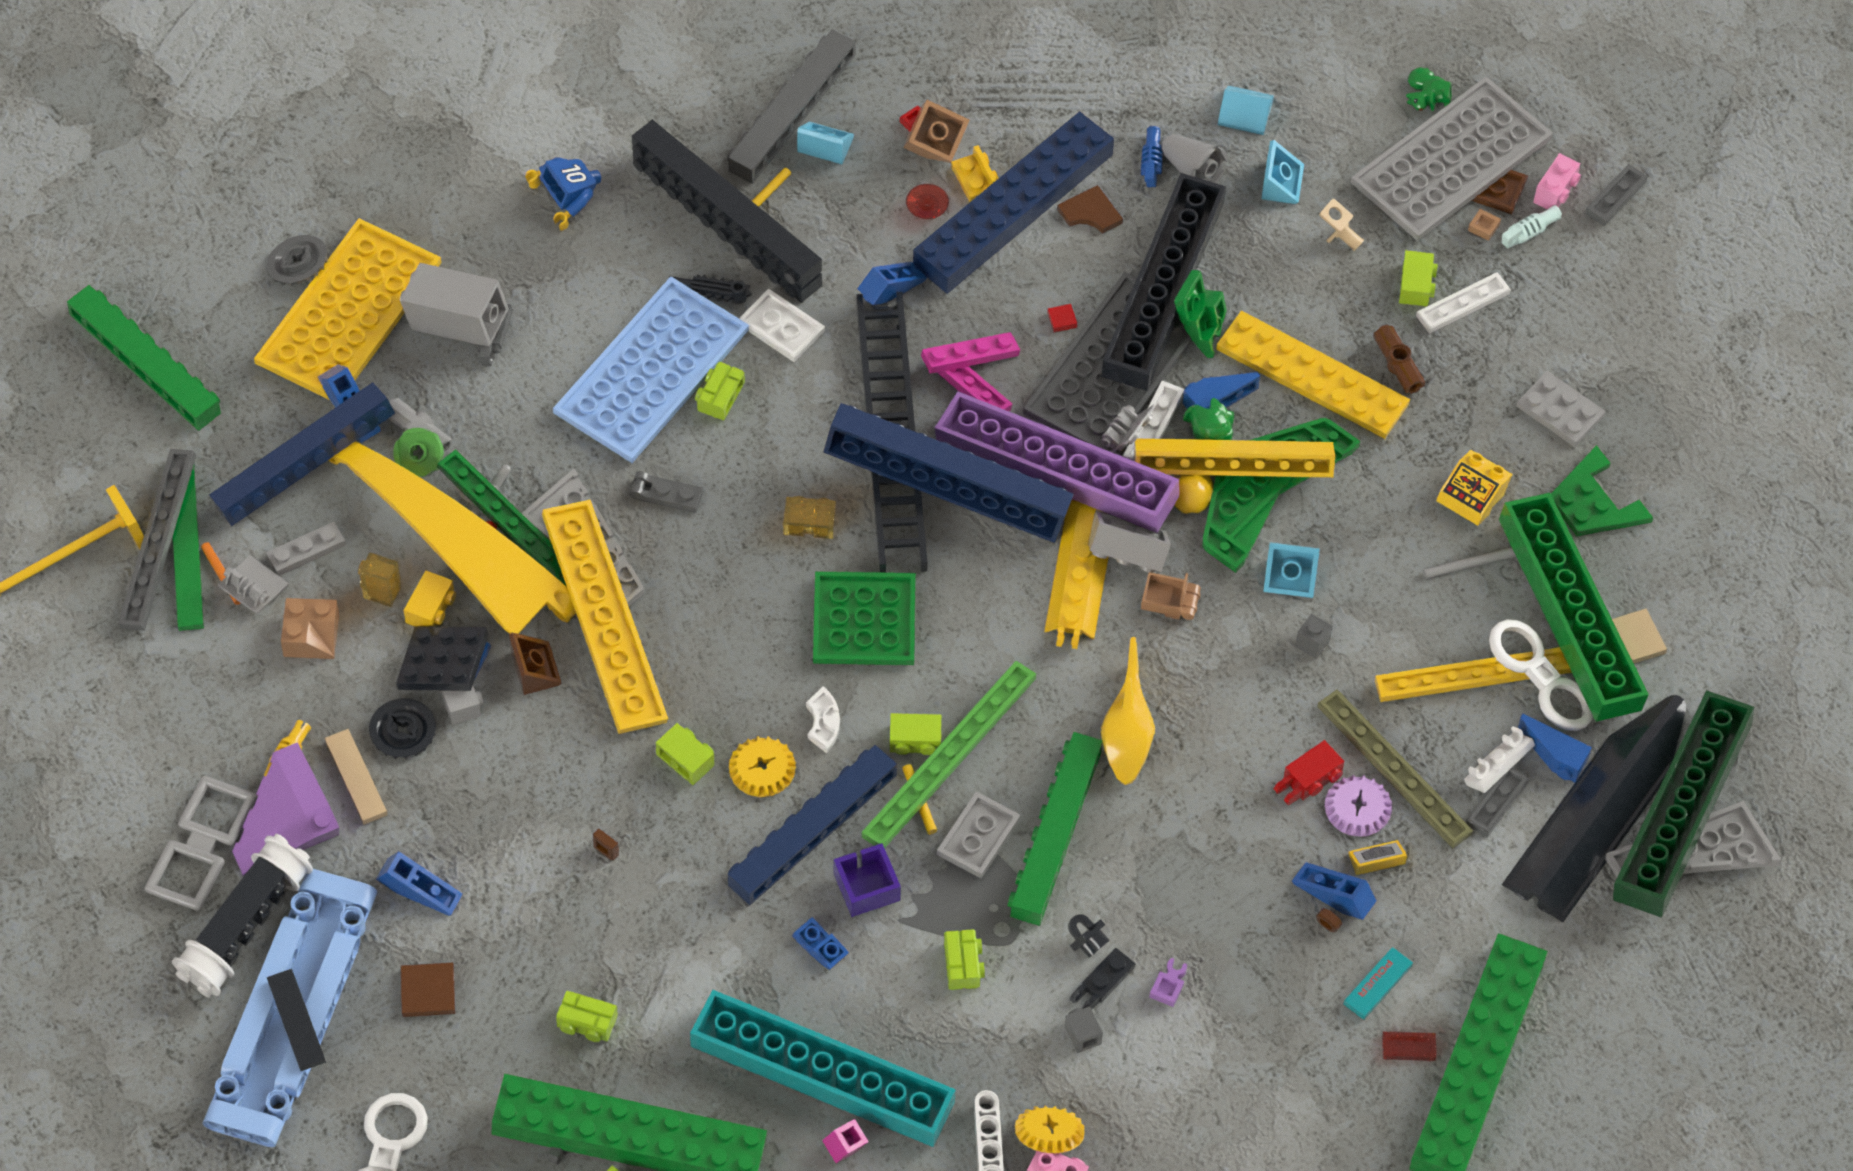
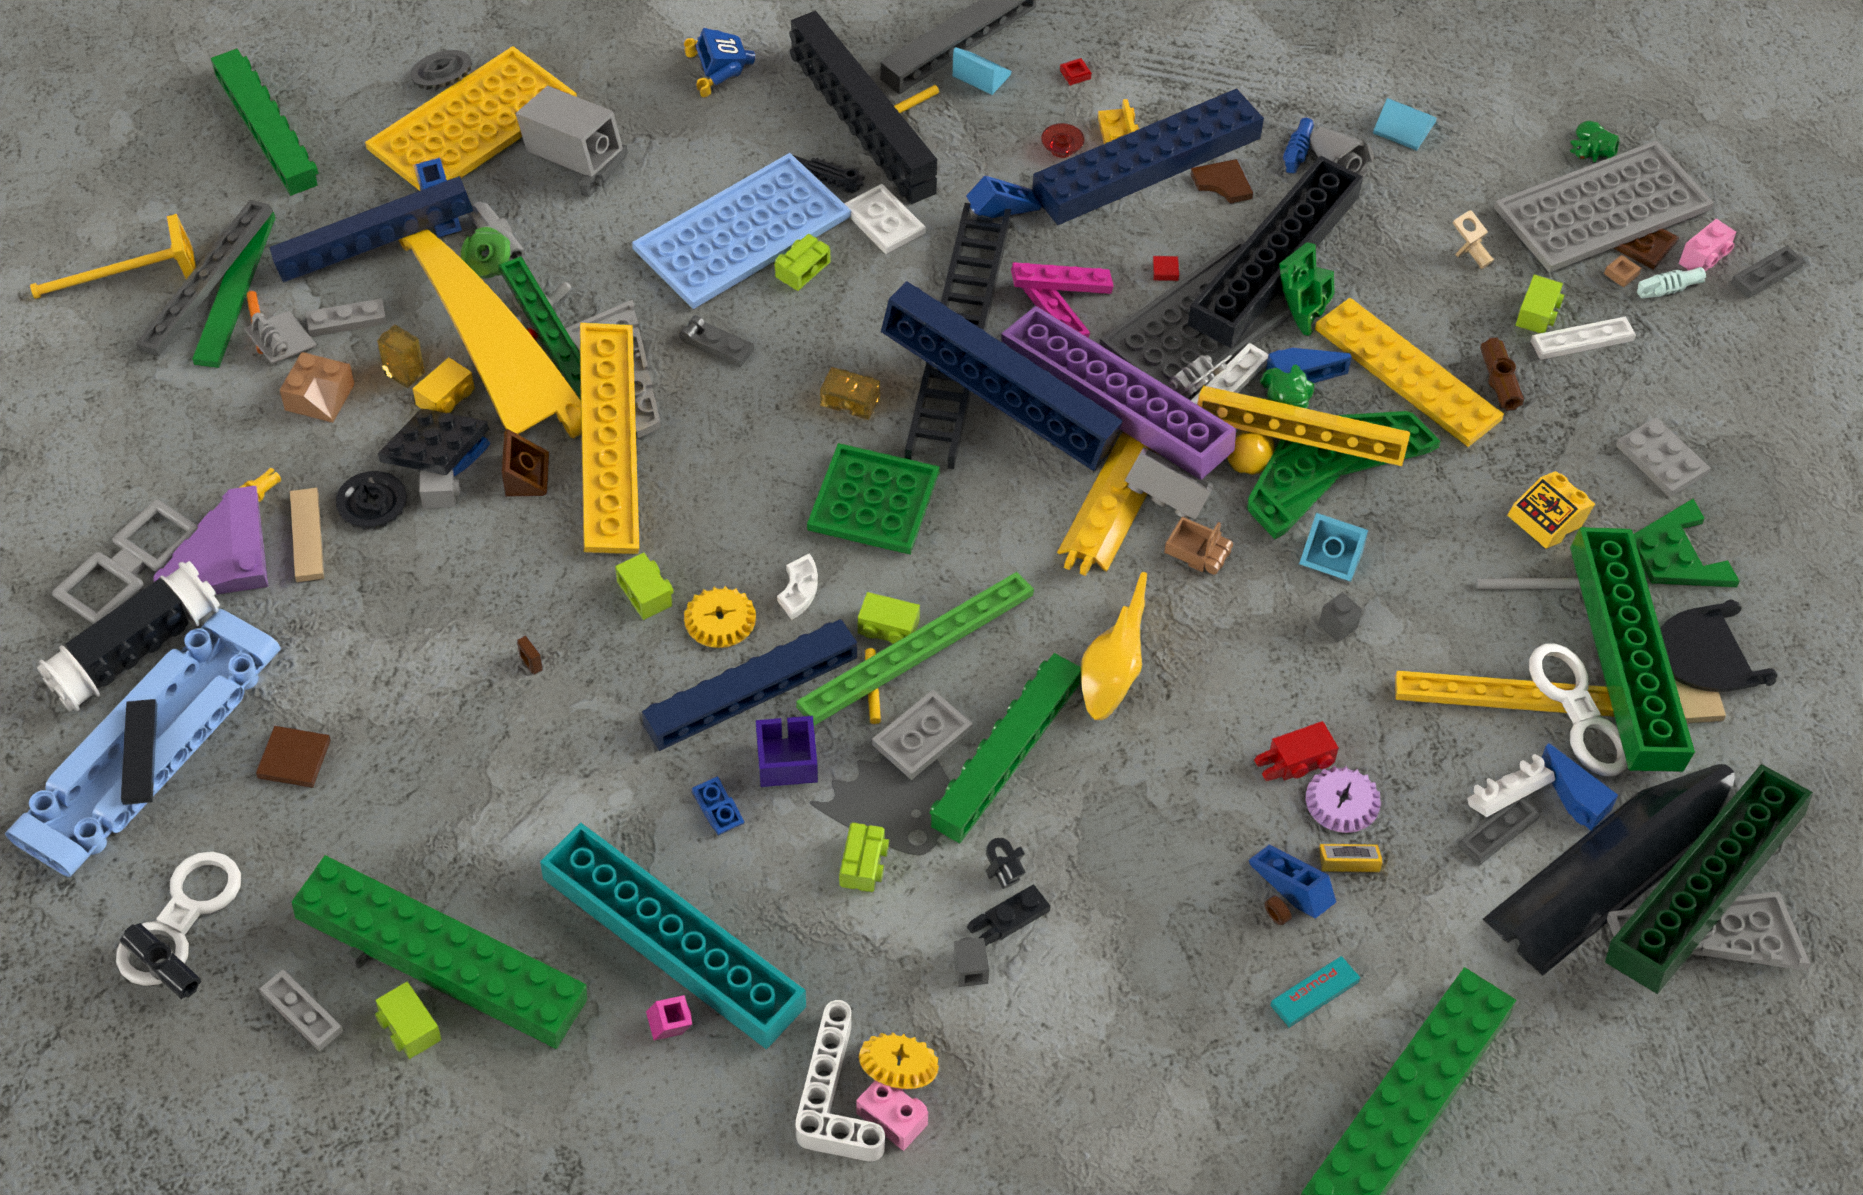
camera: 15 degrees right, 5 degrees down
(418, 884) = (324, 649): blue slope -> none
(586, 1016) = (443, 821): lime brick -> none
(936, 132) = (1090, 80): medium nougat slope -> none
(1169, 985) = (1080, 938): medium lavender plate -> none
(1282, 175) = (1424, 186): medium azure slope -> none
(1395, 768) = (1395, 772): olive tile -> none
(1409, 1046) = (1332, 1068): clear red tile -> none
(1638, 593) = (1706, 652): none -> black piece

